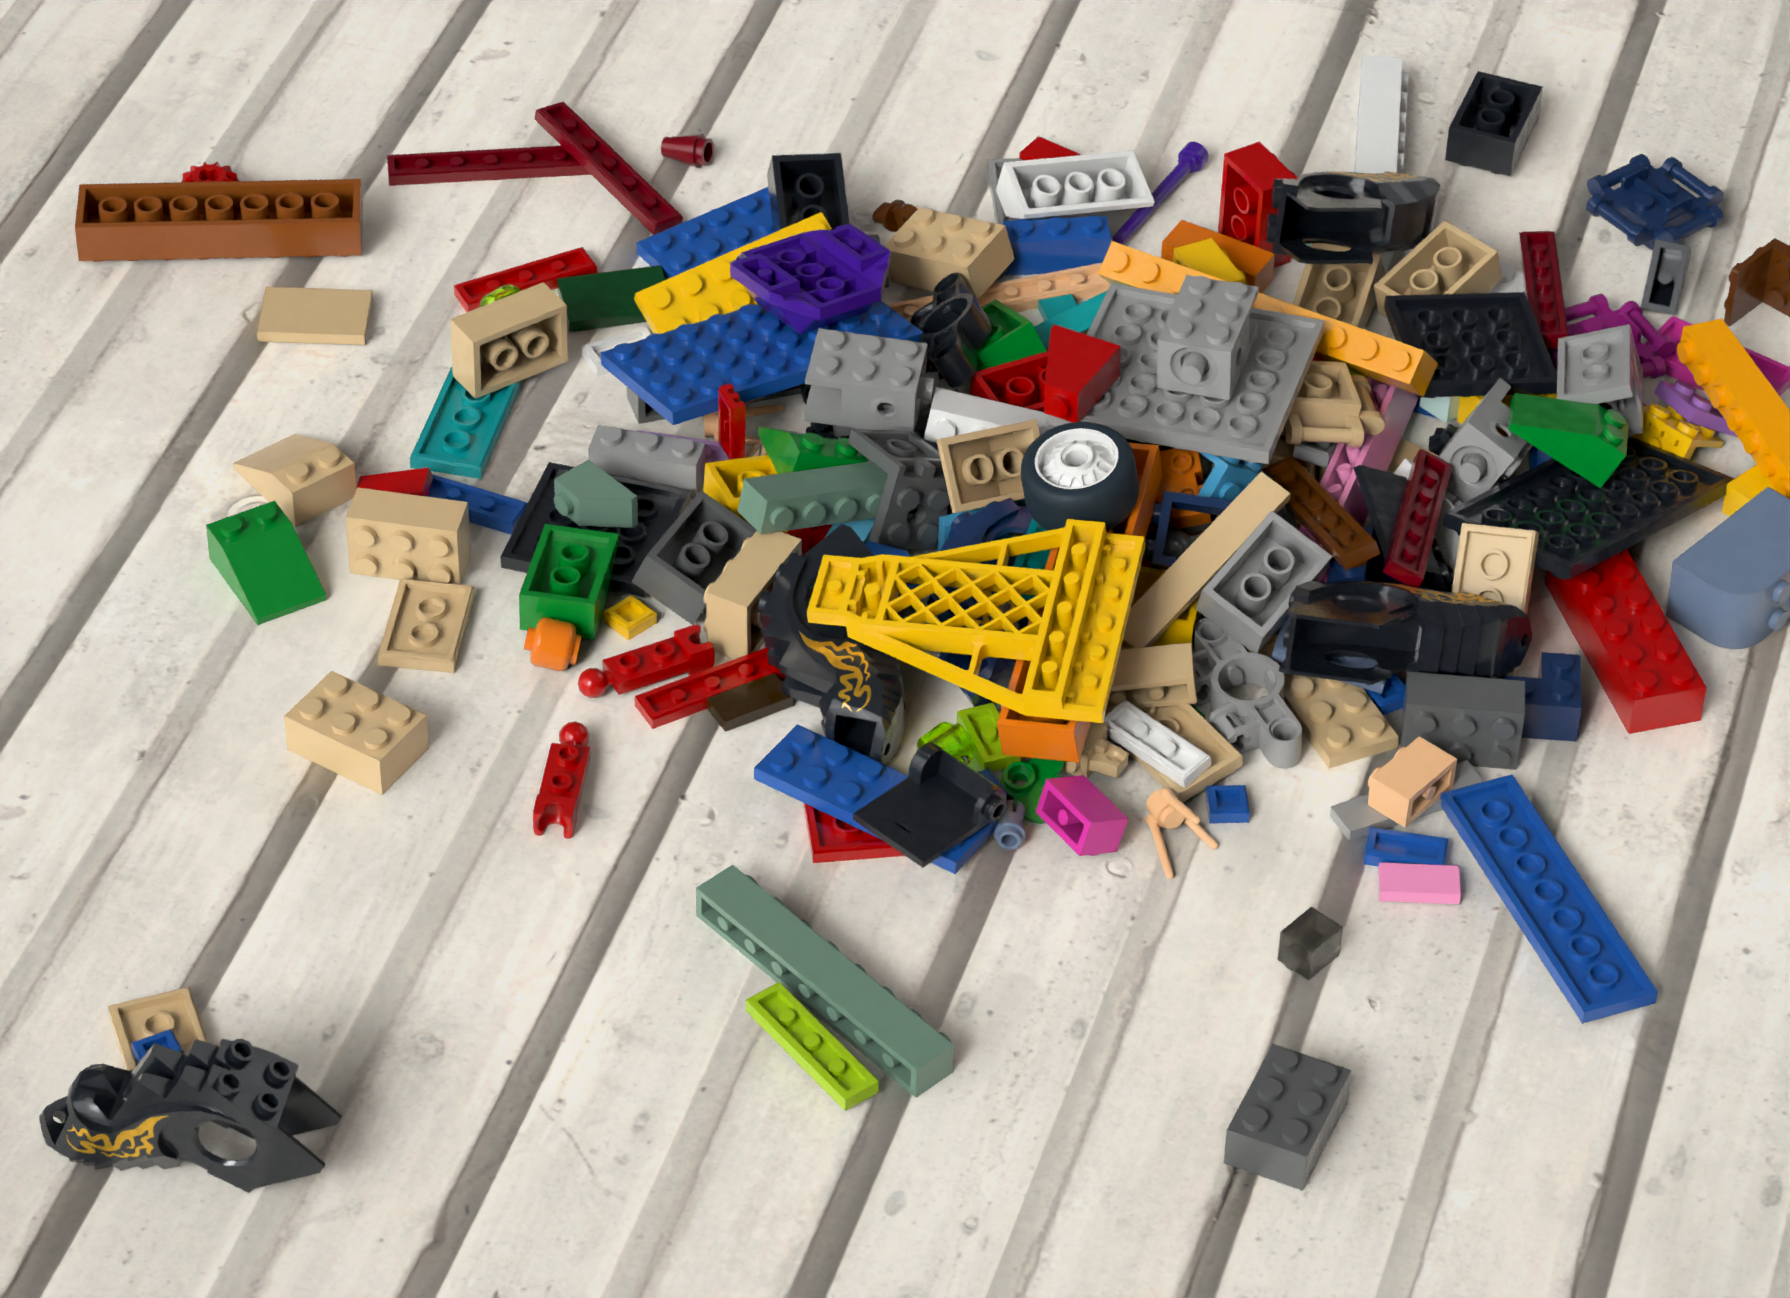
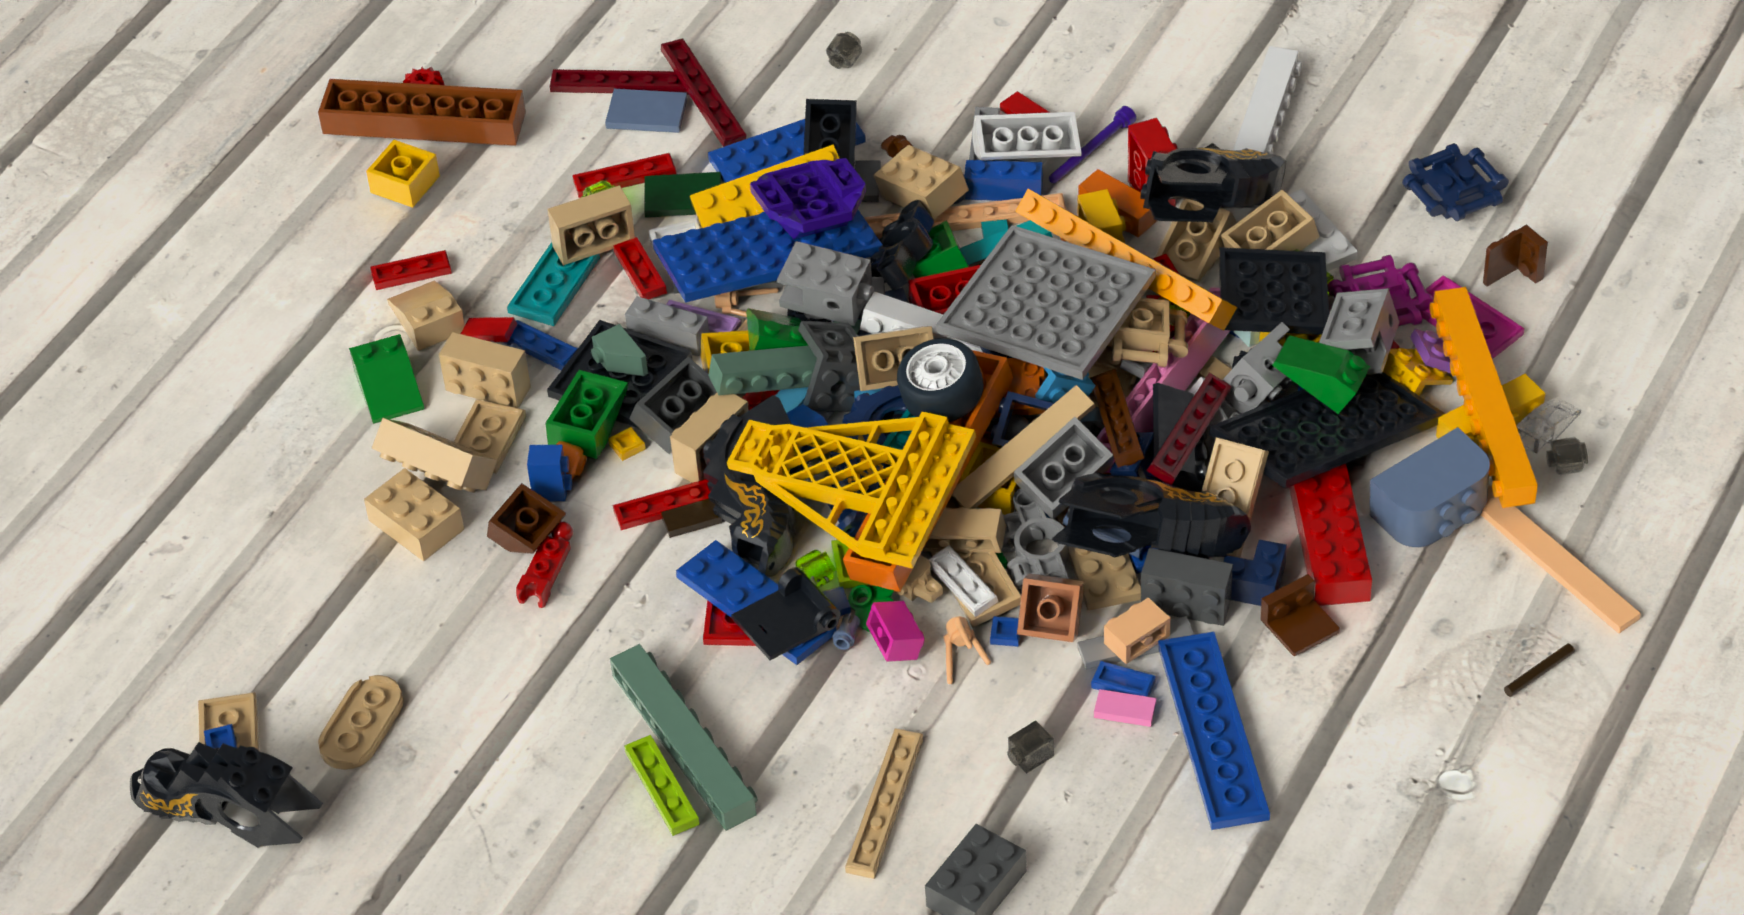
camera: 15 degrees right, 5 degrees up
(215, 299) = (403, 173): none -> yellow brick
(256, 423) = (410, 270): none -> red tile
(315, 315) = (471, 190): tan tile -> none
(353, 1011) = (360, 722): none -> tan tile
(368, 651) = (433, 455): none -> tan brick
(520, 726) = (524, 521): none -> reddish brown slope
(533, 198) = (646, 110): none -> sand blue tile
(538, 659) = (548, 471): none -> blue brick
(584, 393) = (640, 269): none -> red plate
(650, 664) = (629, 482): red plate -> none
(689, 149) = (765, 82): dark red cone -> none
(731, 422) = (728, 304): red tile -> none
(789, 101) = (844, 50): none -> clear smoke head
(1078, 372) = (960, 297): red slope -> none
(1127, 1038) = (884, 803): none -> tan tile
(1206, 337) = (1059, 278): light grey torso -> none
(1289, 763) = (1050, 607): none -> nougat brick
(1493, 123) = (1352, 108): black brick -> none
(1544, 284) = (1348, 246): dark red tile -> none
(1613, 748) = (1297, 617): none -> reddish brown bracket
(1666, 277) = (1446, 245): black slope -> none

